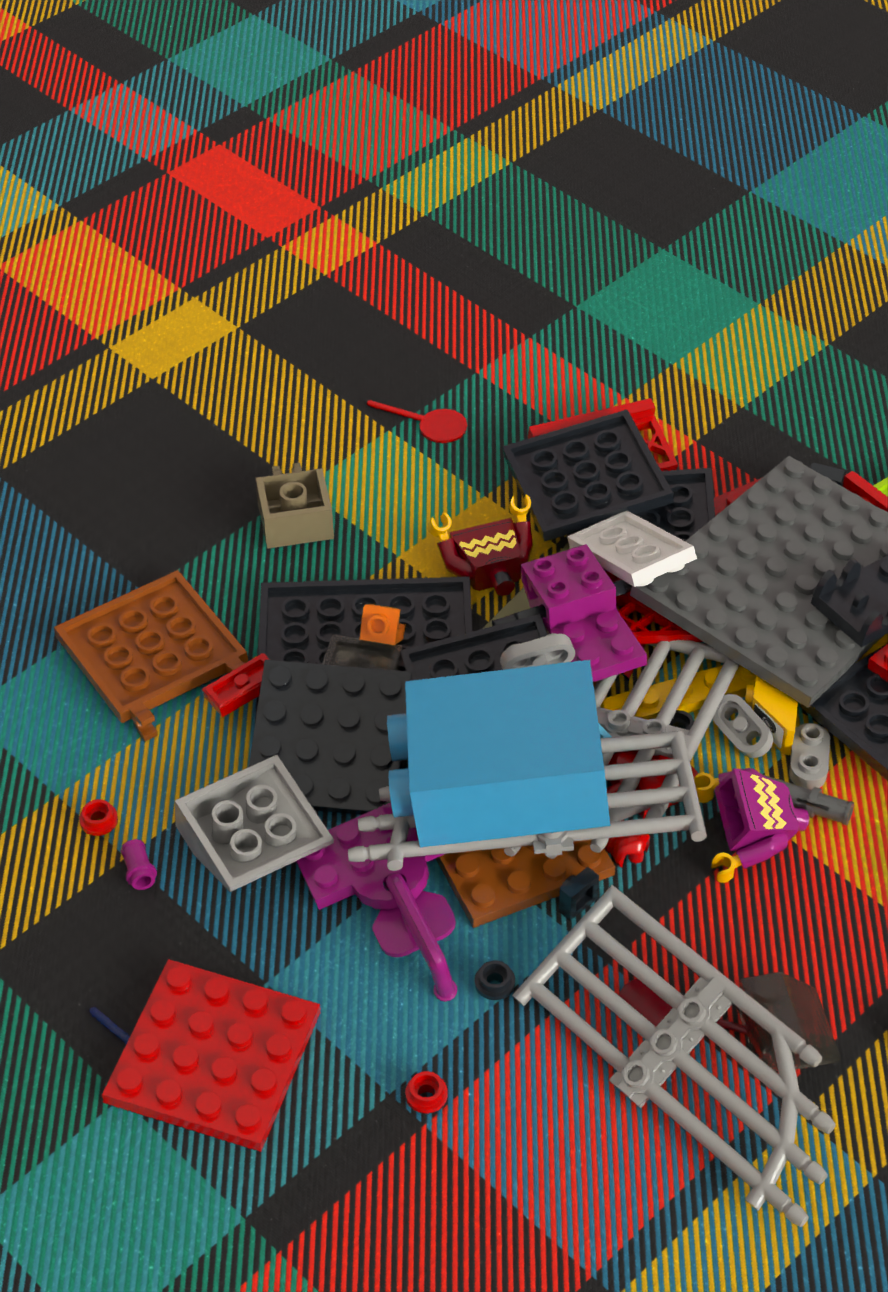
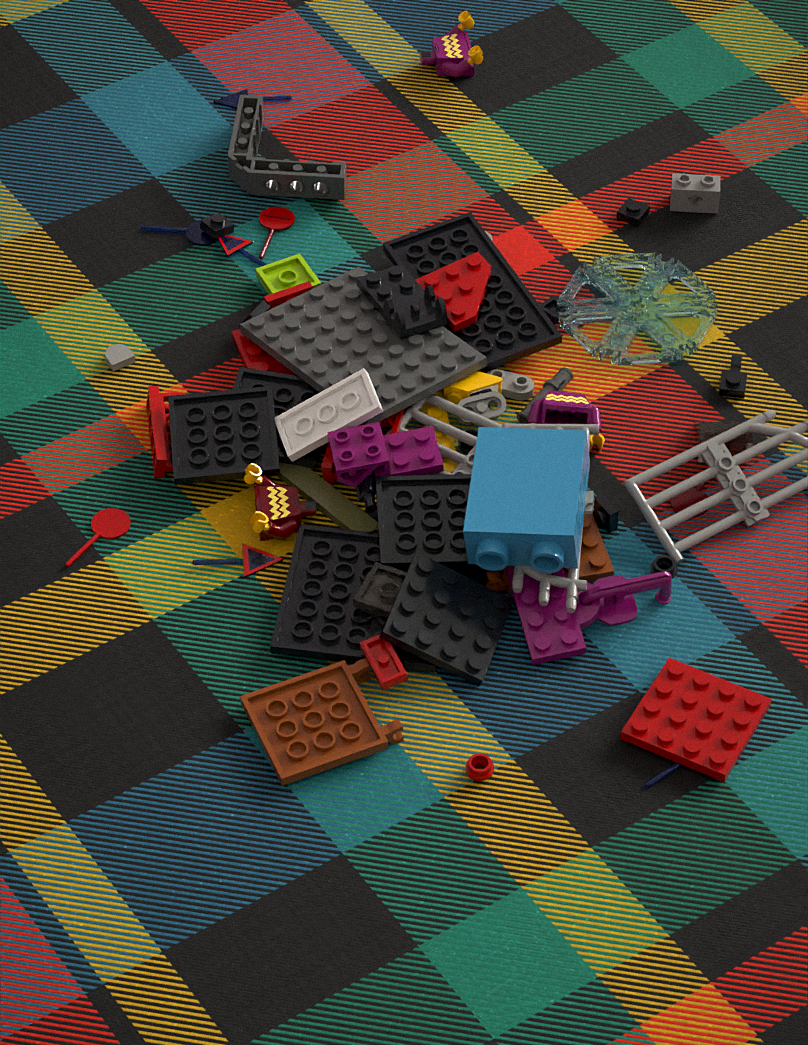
camera: 80 degrees left, 0 degrees up
(140, 872) = (529, 746): magenta pin -> none
(250, 824) = (520, 671): light grey slope -> none
(294, 507) = (190, 615): dark tan hinge -> none
(381, 625) = (357, 569): orange bracket -> none
(413, 555) = (253, 560): none -> piece
(426, 1082) = (743, 613): red plate -> none
(542, 651) = (425, 487): light grey plate -> none
(713, 379) = (119, 356): none -> light grey tile

